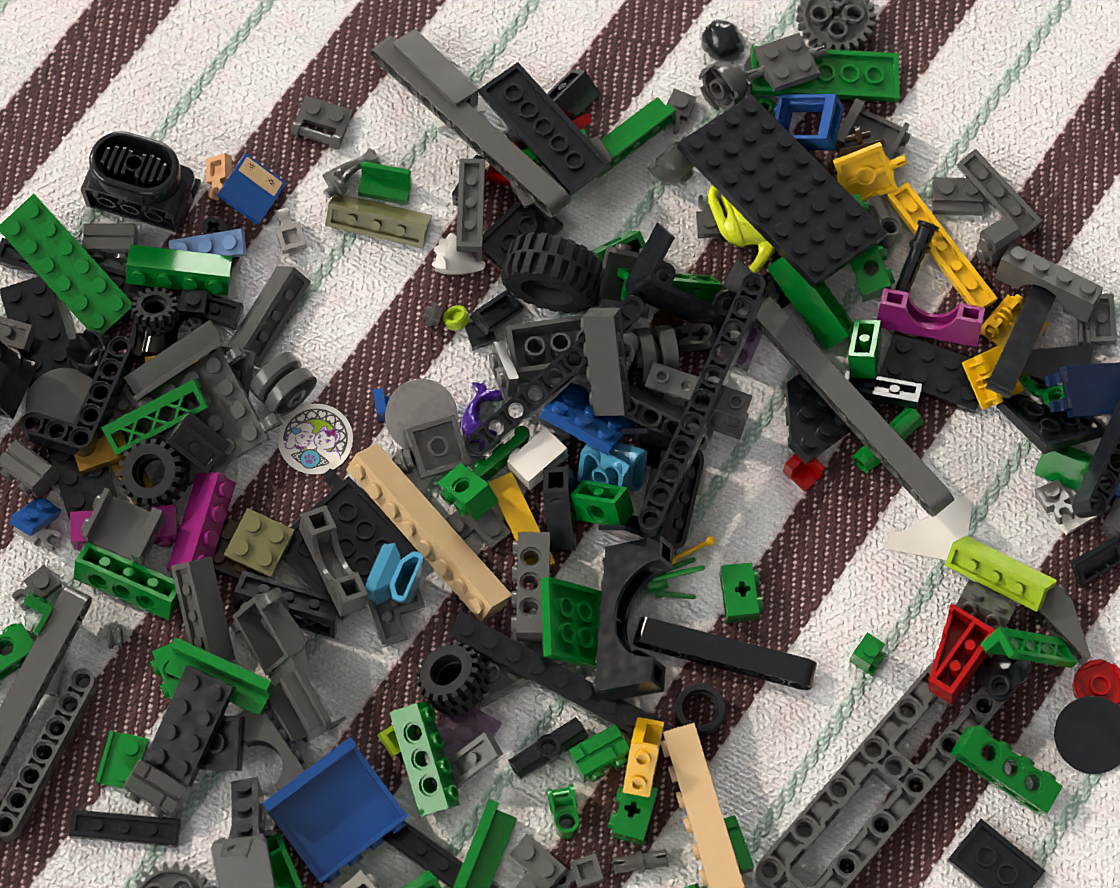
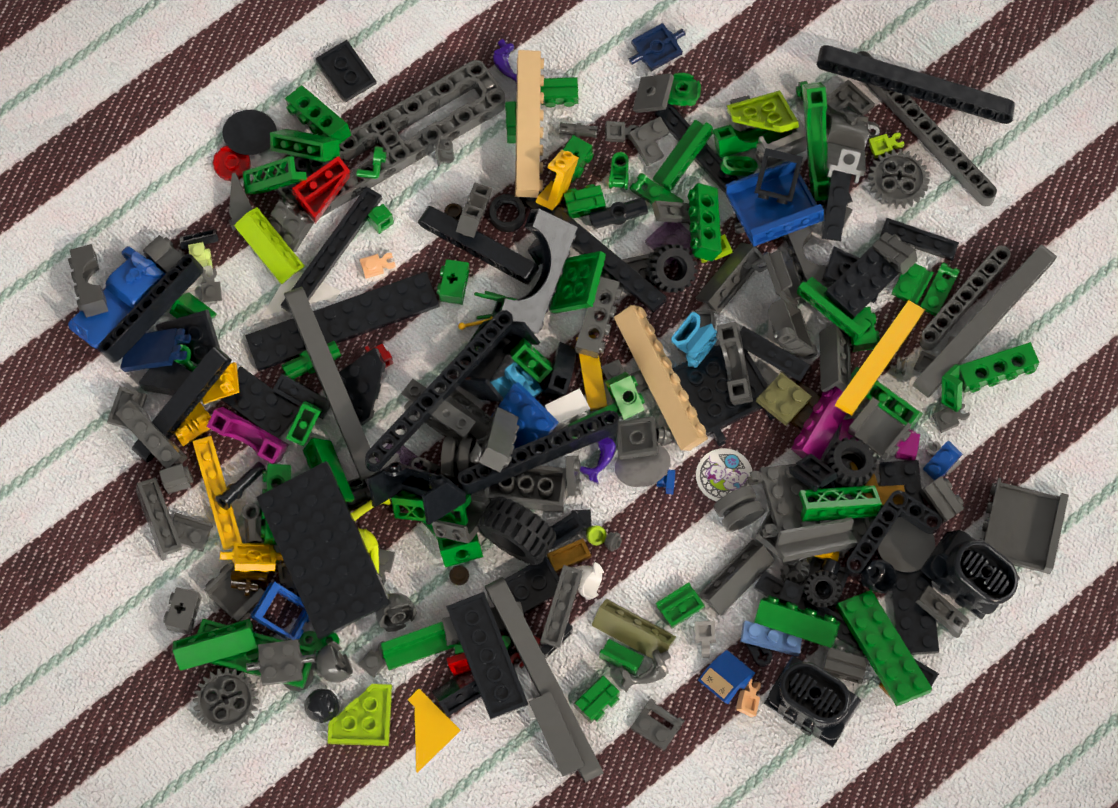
camera: 160 degrees left, 0 degrees up
(82, 652) = (923, 361): none -> dark grey tile
(83, 761) = (939, 290): none -> green plate
(142, 625) = (879, 358): none -> yellow tile
(329, 261) = (680, 605): none -> green plate
(336, 861) = (783, 156): none -> black window
(374, 699) = (729, 277): none -> dark grey panel
(399, 128) = (597, 699): none -> green brick
(401, 862) = (738, 165): none -> green plate
(481, 288) = (569, 555): none -> pearl gold tile
(508, 794) = (653, 192): none -> green plate
(587, 52) = (432, 729): none -> yellow sticker
(610, 228) = (459, 575): none -> dark brown plate
(667, 40) = (364, 719): none -> lime plate
(744, 686) = (474, 210): none -> dark grey arch
(773, 694) = (453, 210): none -> dark brown plate
(815, 767) = (443, 150): none -> dark grey hinge
(853, 592) = (374, 266): none -> light nougat plate
(860, 511) = (346, 319): none -> black plate
(874, 66) = (214, 644): none -> green panel
(898, 724) = (378, 159): none -> green plate
(914, 602) = (337, 243): none -> black plate
(924, 113) = (185, 620): none -> dark grey brick
(1005, 712) = (304, 145): none -> green brick
(1086, 536) = (201, 254): none -> yellowish green brick

